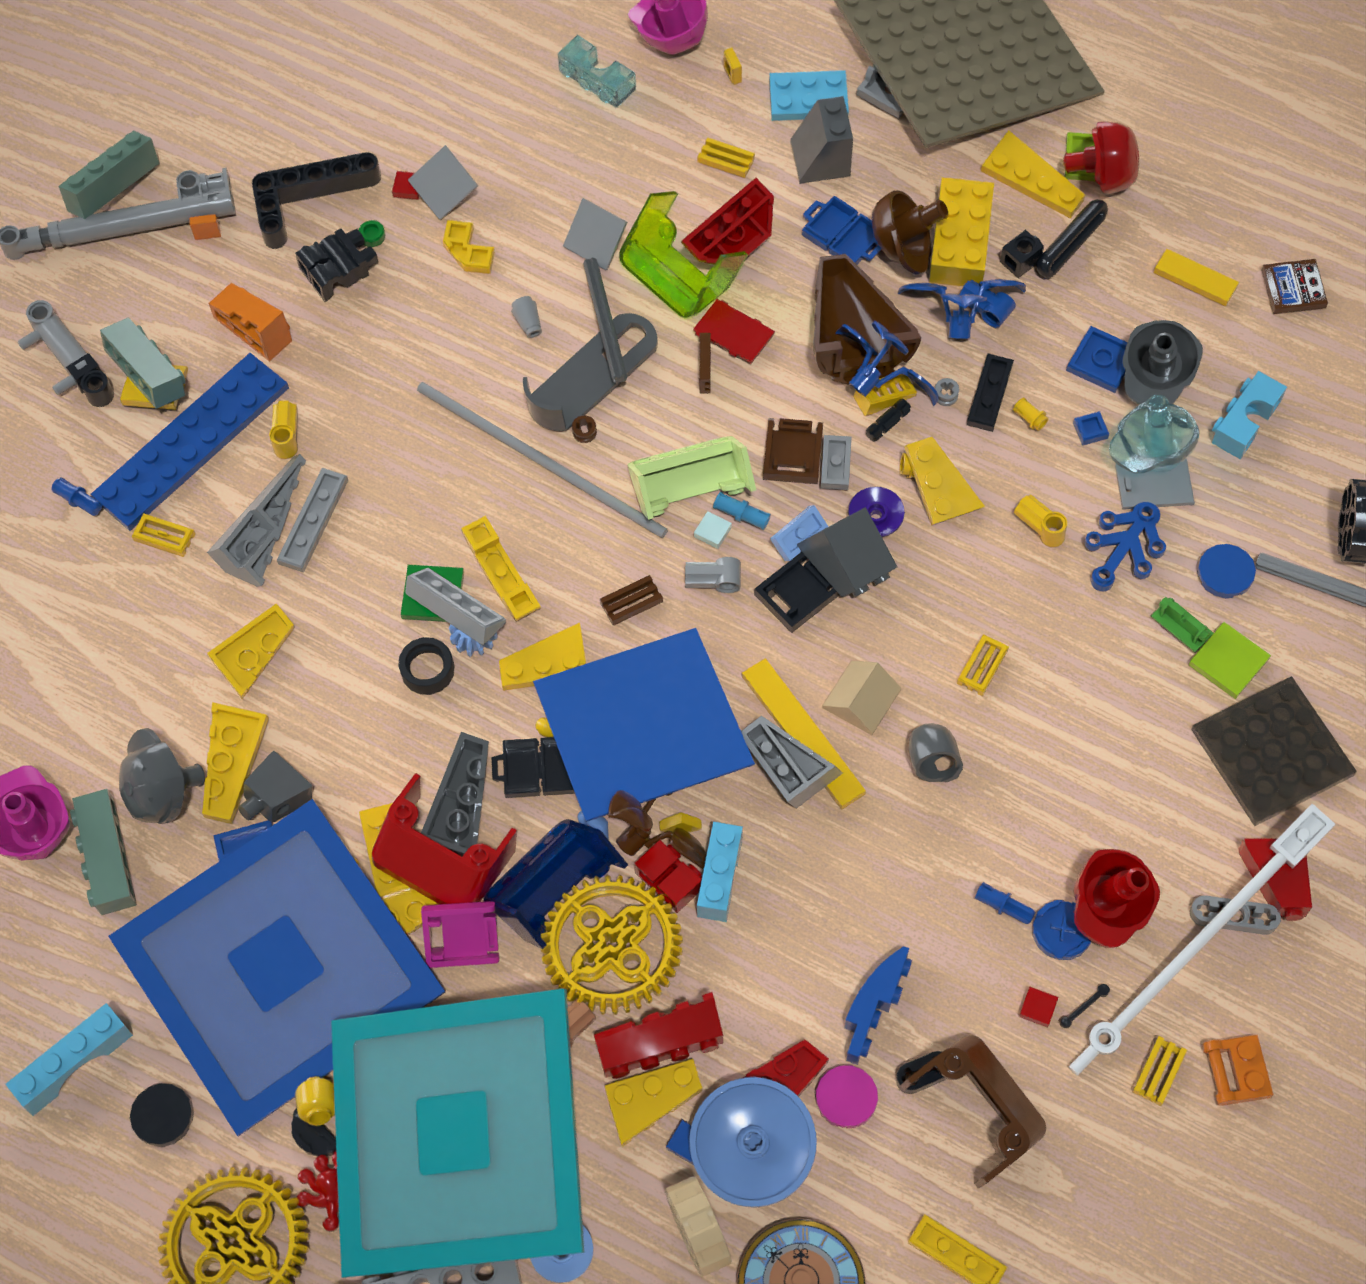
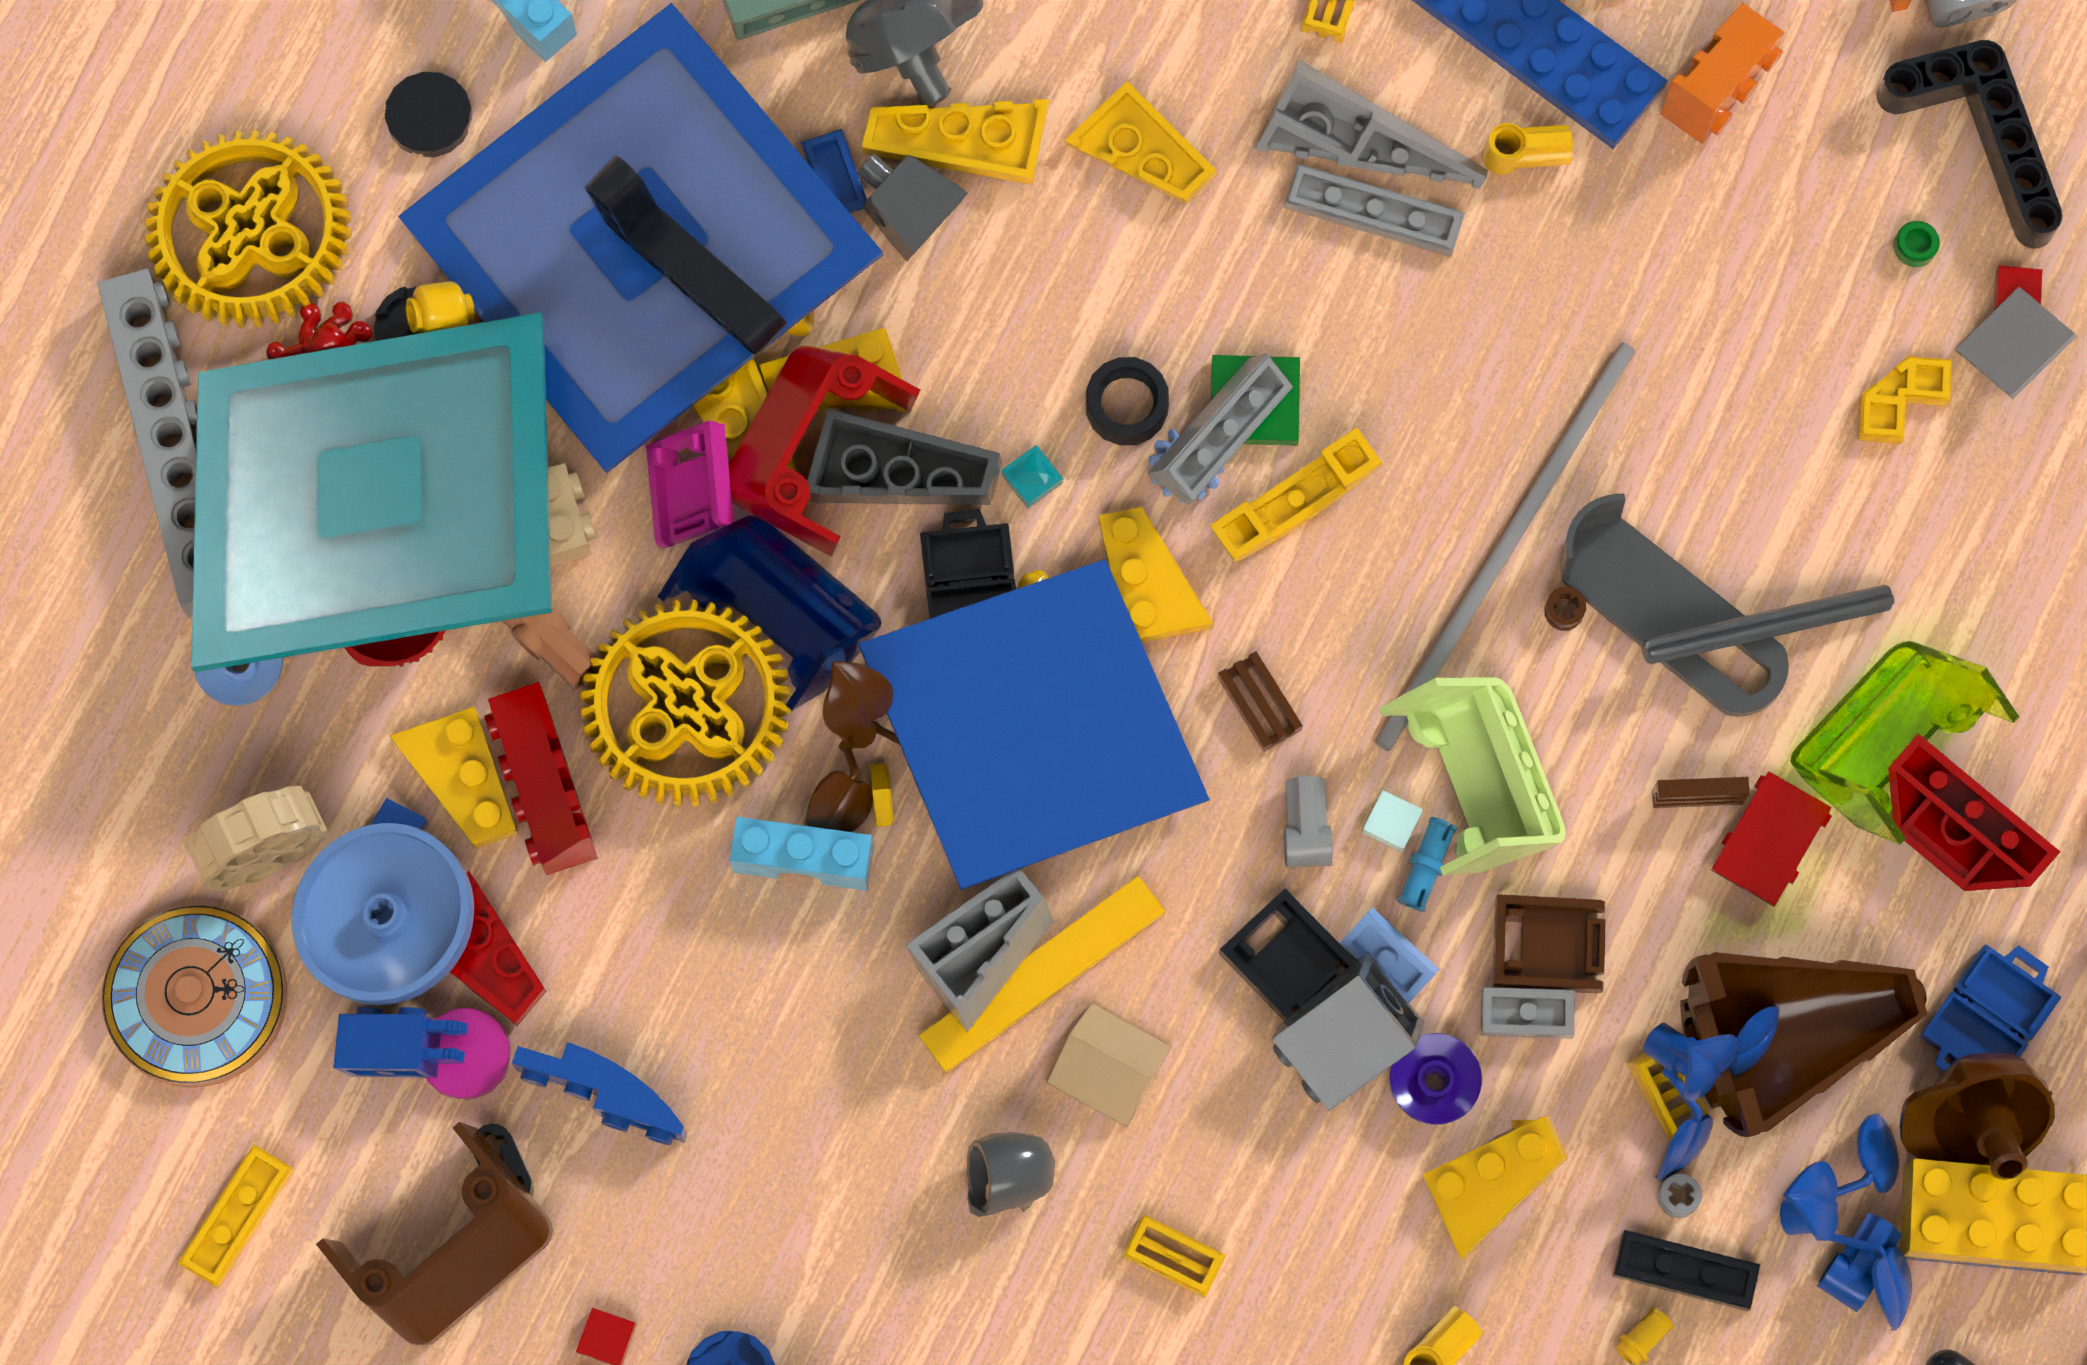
camera: 85 degrees right, 10 degrees up
(307, 923) = (636, 219): none -> black beam
(336, 261) = (1854, 199): black hips -> none
(471, 723) = (1032, 476): none -> teal tile
(527, 316) = (1770, 502): light grey cone -> none
(595, 233) = (1936, 597): light grey piece -> none
(668, 875) = (785, 788): red piece -> none
(843, 1137) = (394, 1043): none -> blue hinge
(888, 420) = (1617, 1098): black axle -> none
(1004, 903) = (766, 1287): blue axle -> none
(1019, 262) = (1947, 1318): black brick -> none

